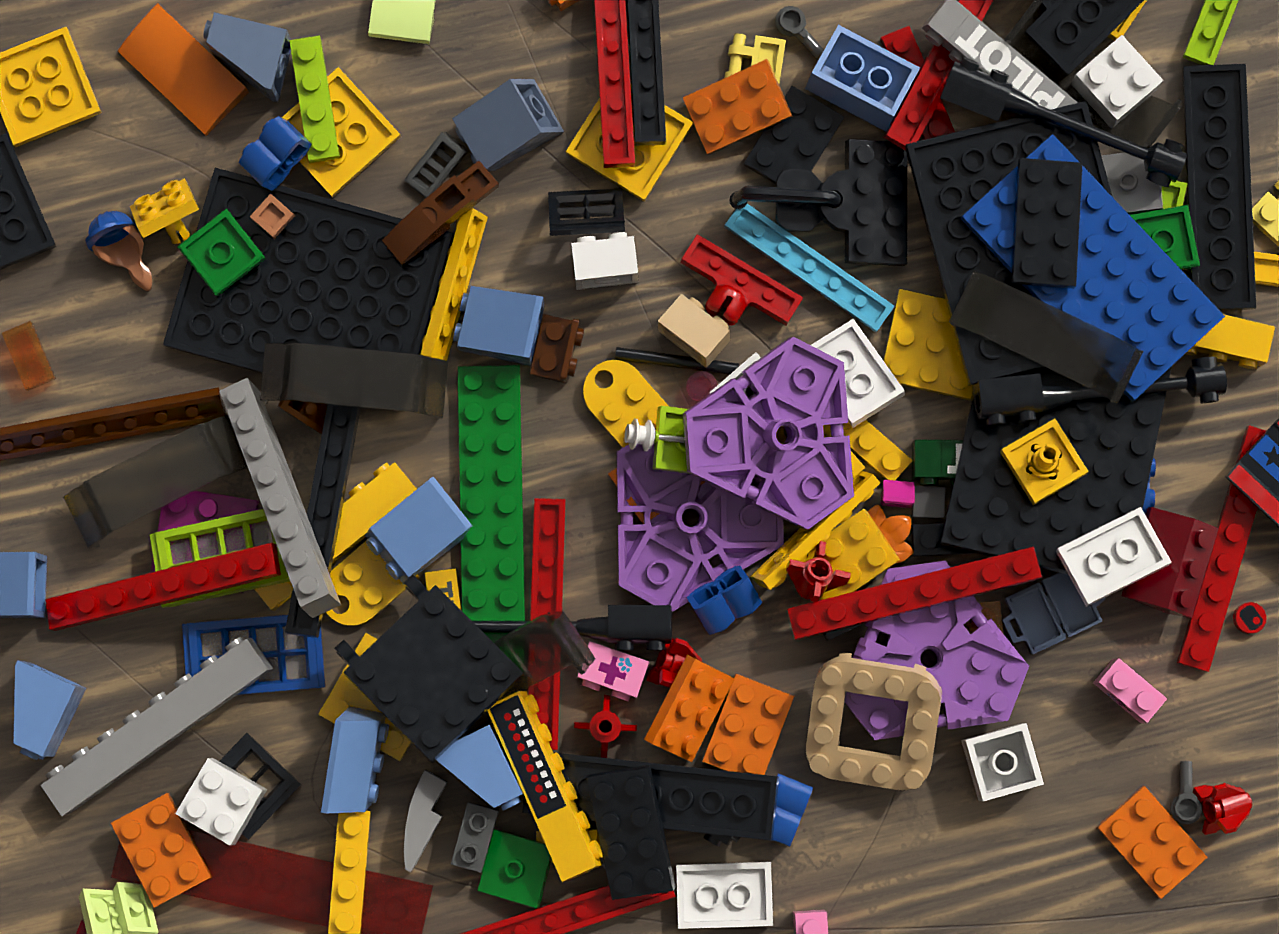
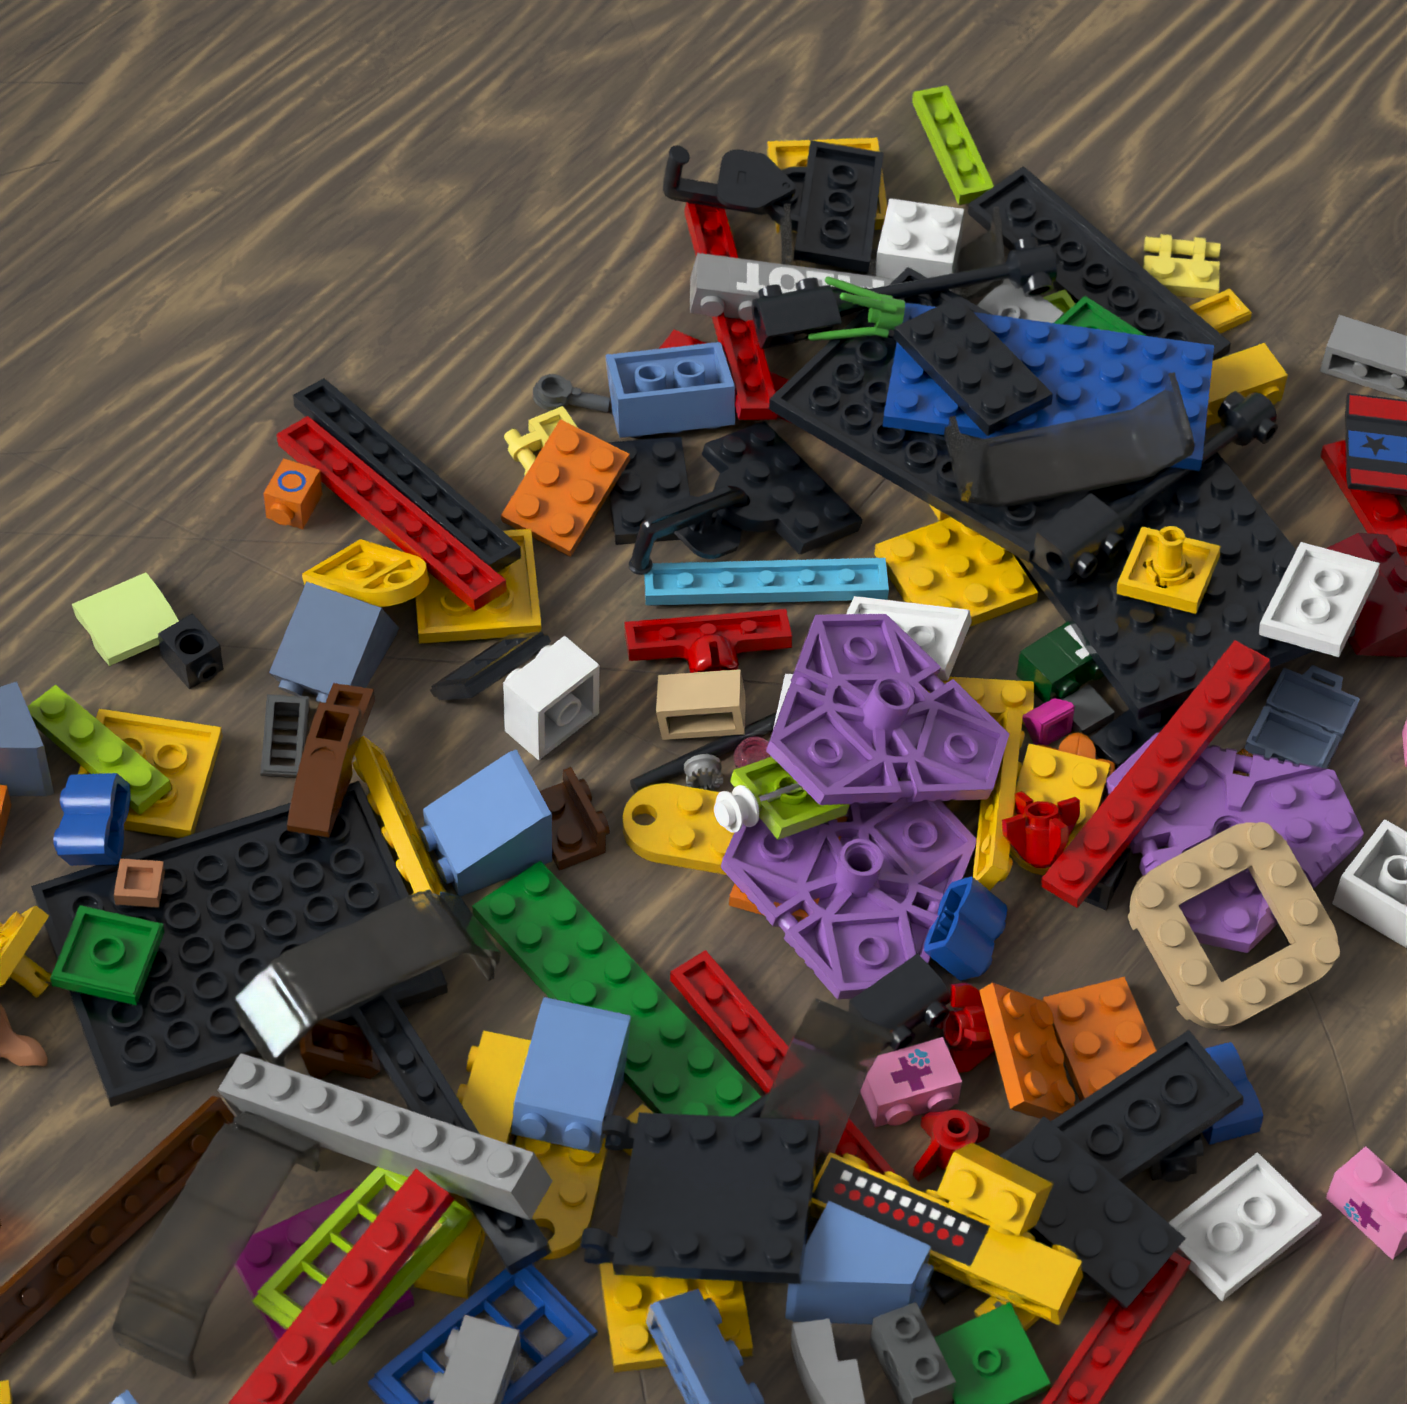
camera: 35 degrees left, 30 degrees down
(422, 51) = (191, 651): none -> black brick
(563, 86) = (371, 574): none -> yellow plate
(580, 791) = (994, 1189): none -> yellow brick
(661, 376) = (703, 772): none -> light grey bush
(1028, 136) = (883, 312): none -> bright green plant

